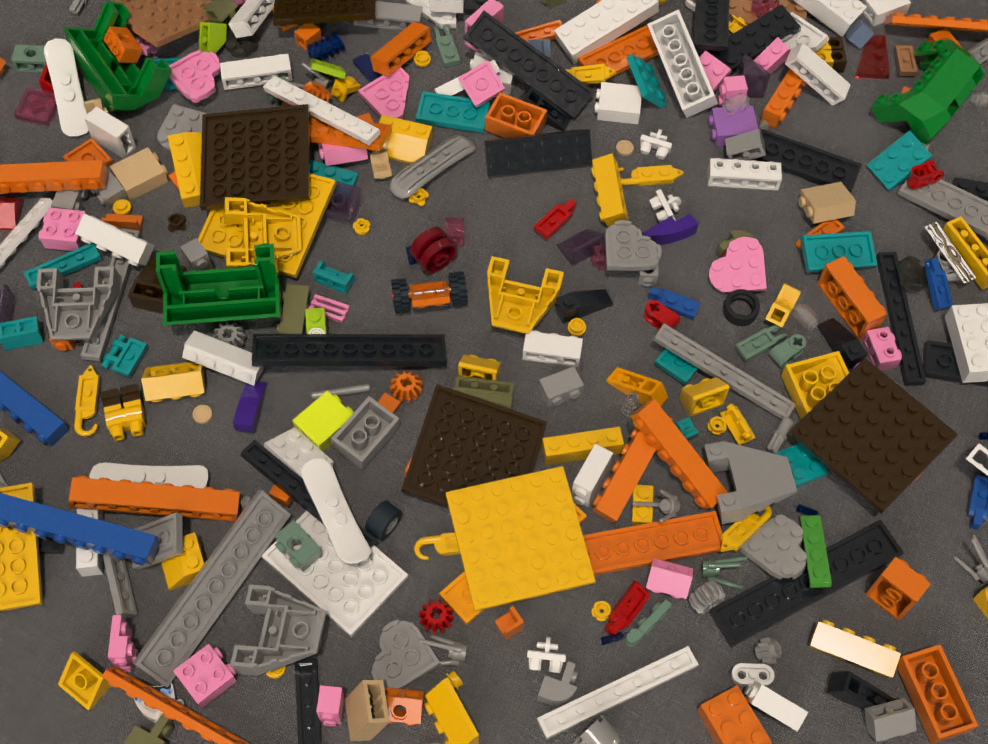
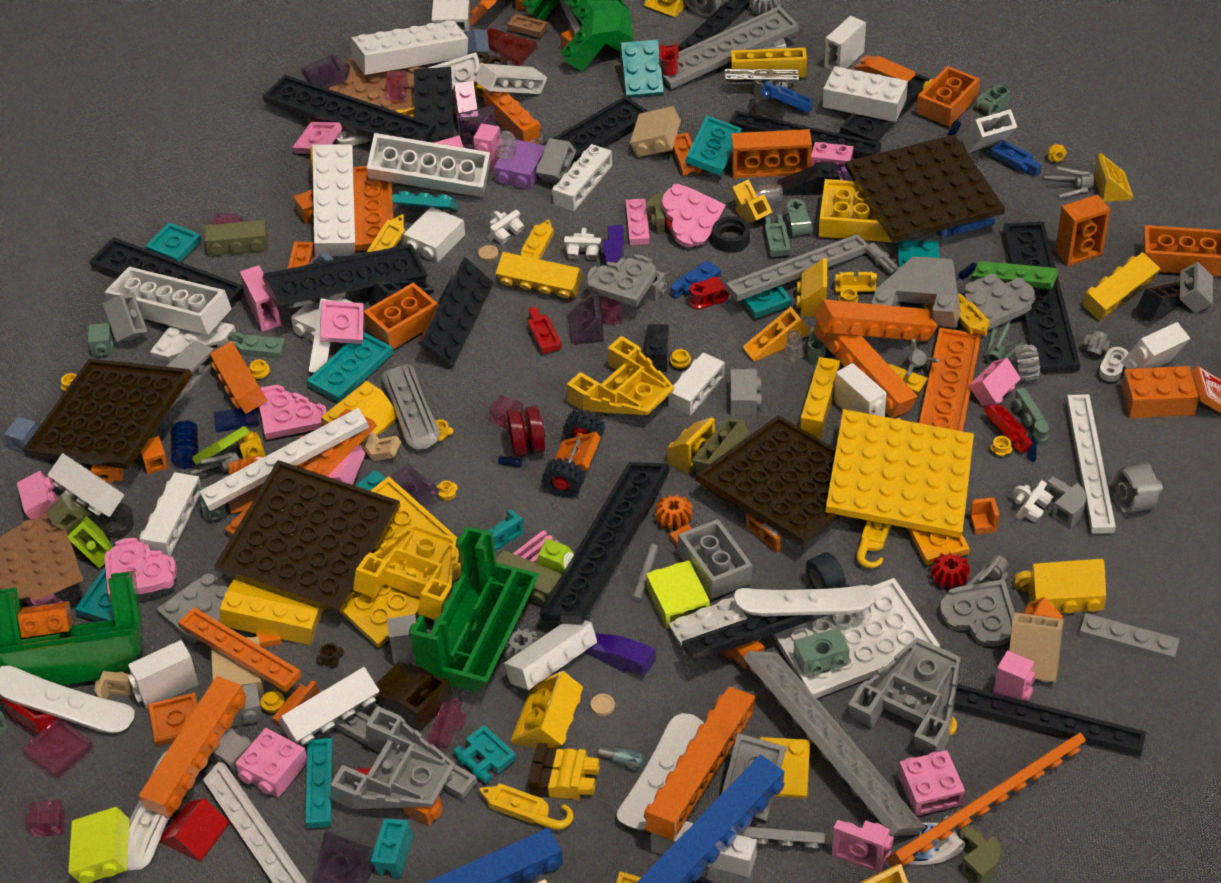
camera: 60 degrees left, 15 degrees down
(142, 165) = (240, 649): none -> orange plate
(145, 318) = (447, 719): none -> clear pink hinge
(155, 448) = (624, 757): none -> clear light blue piece
(714, 236) = (637, 222): none -> bright pink plate

